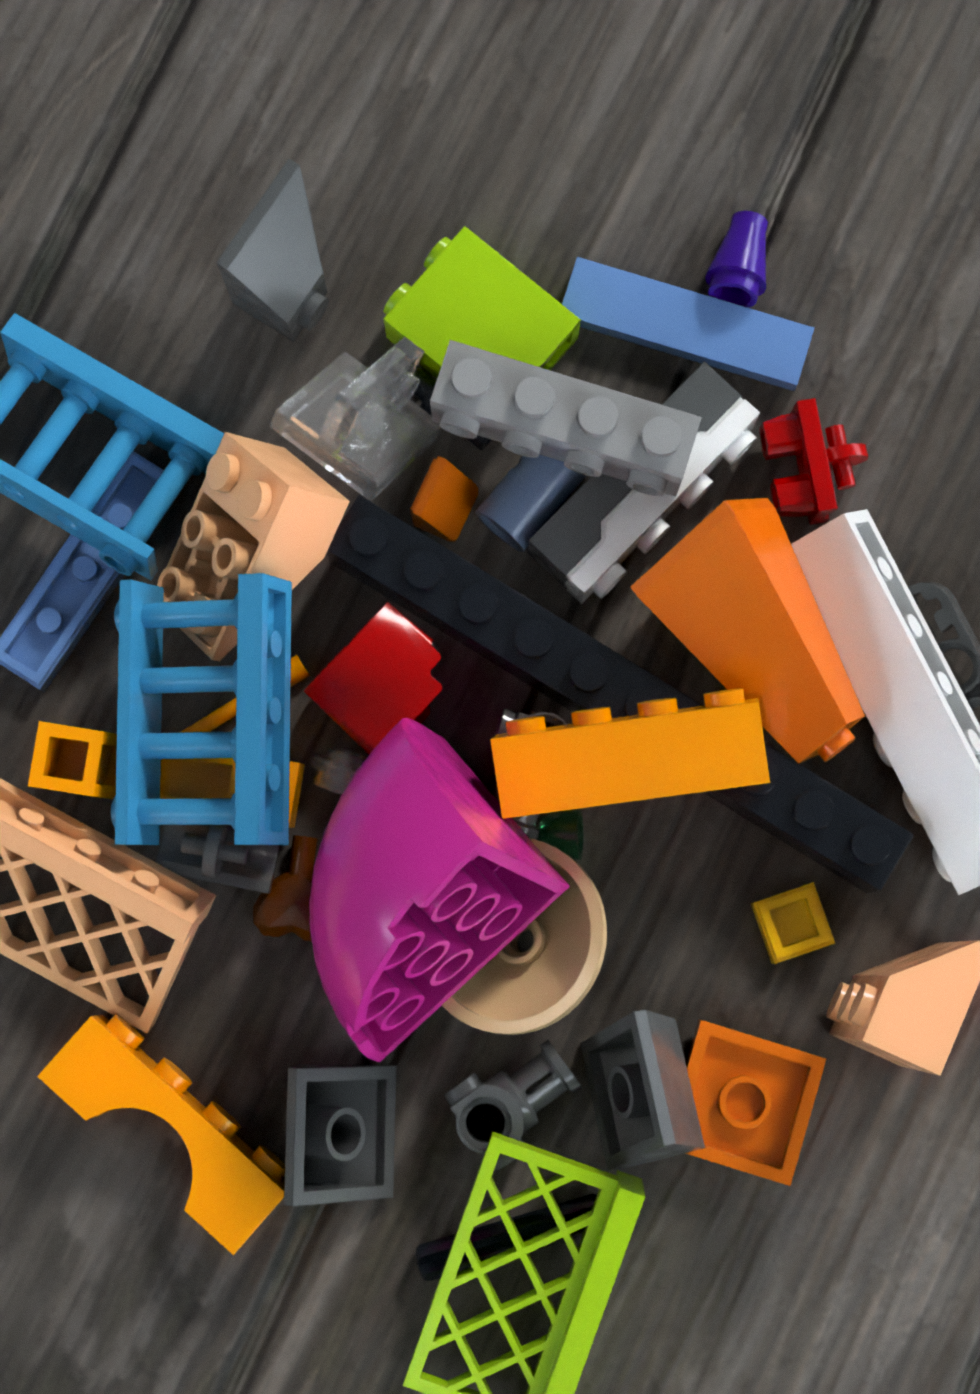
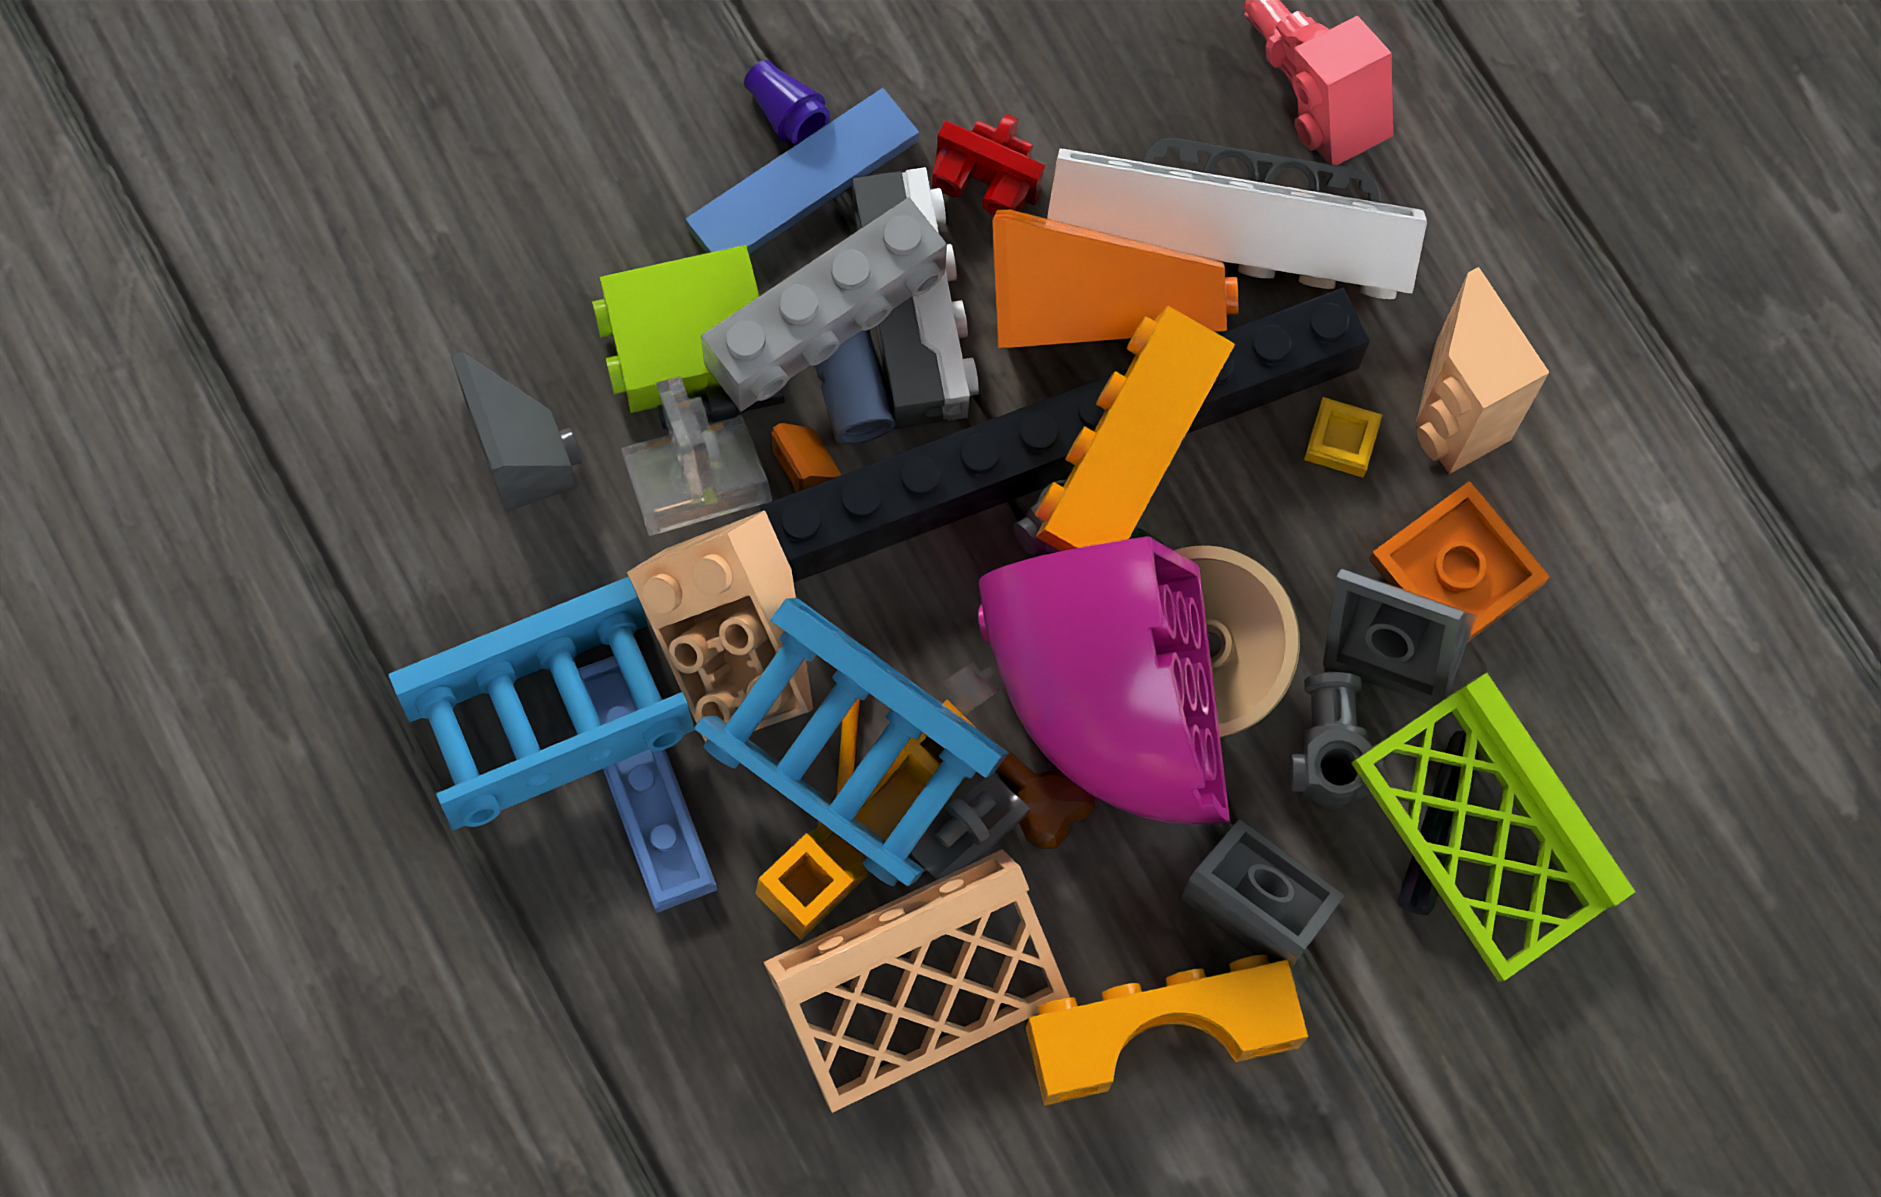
camera: 60 degrees left, 10 degrees down
(379, 678) = (922, 605): red piece -> none

